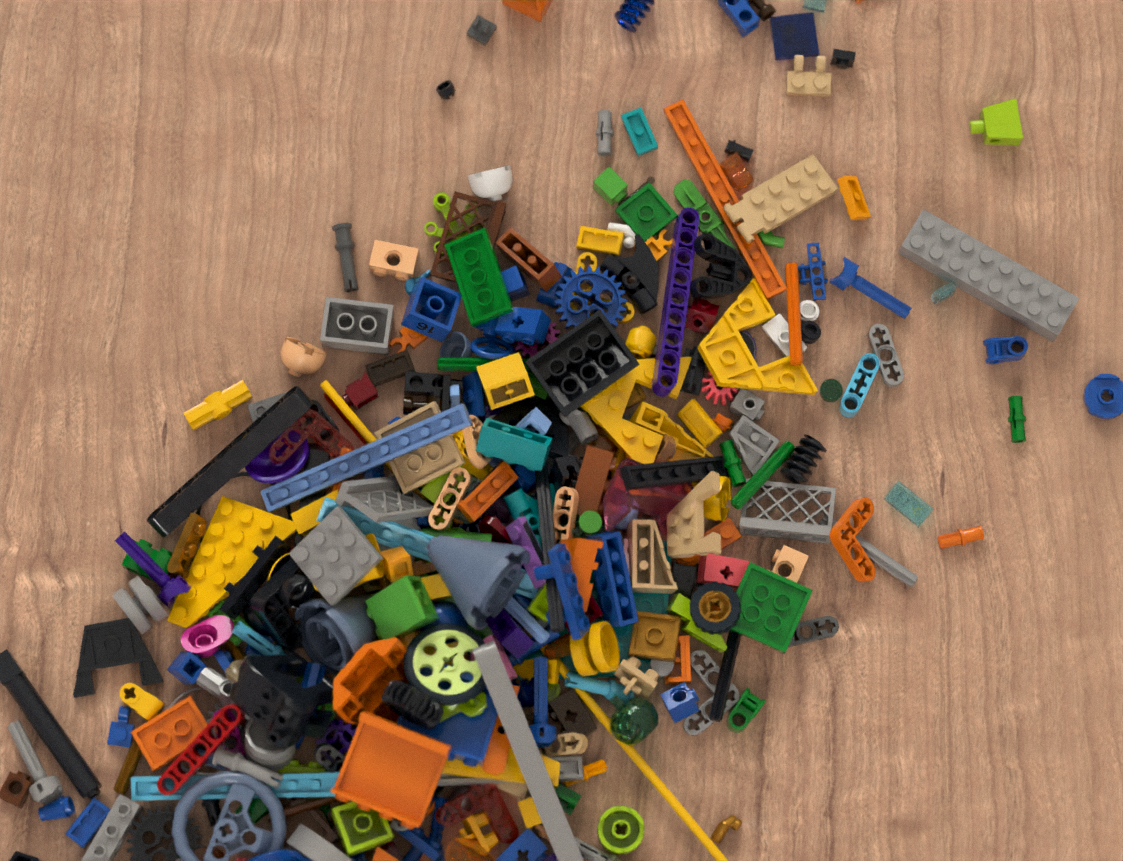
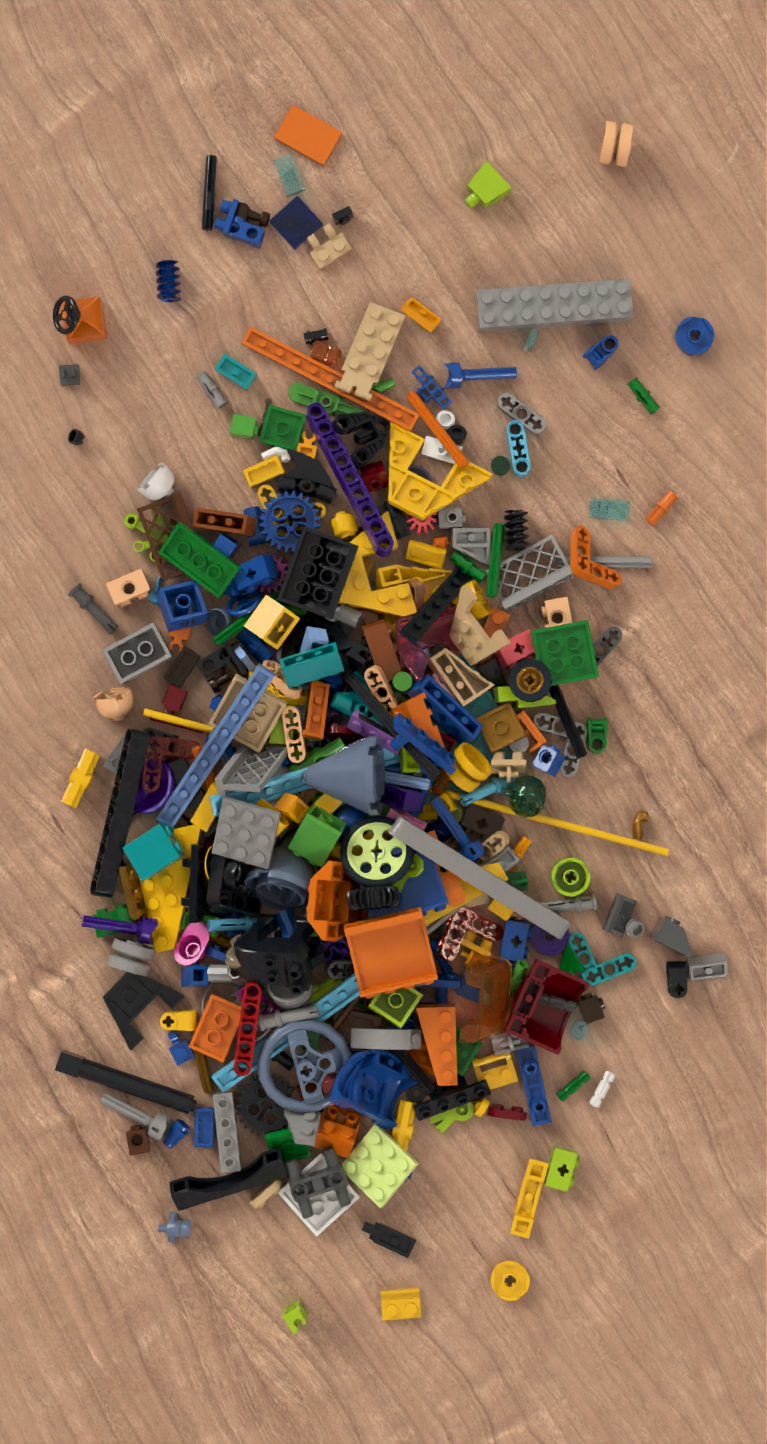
camera: 30 degrees left, 10 degrees up
(236, 519) = (154, 851): none -> teal brick

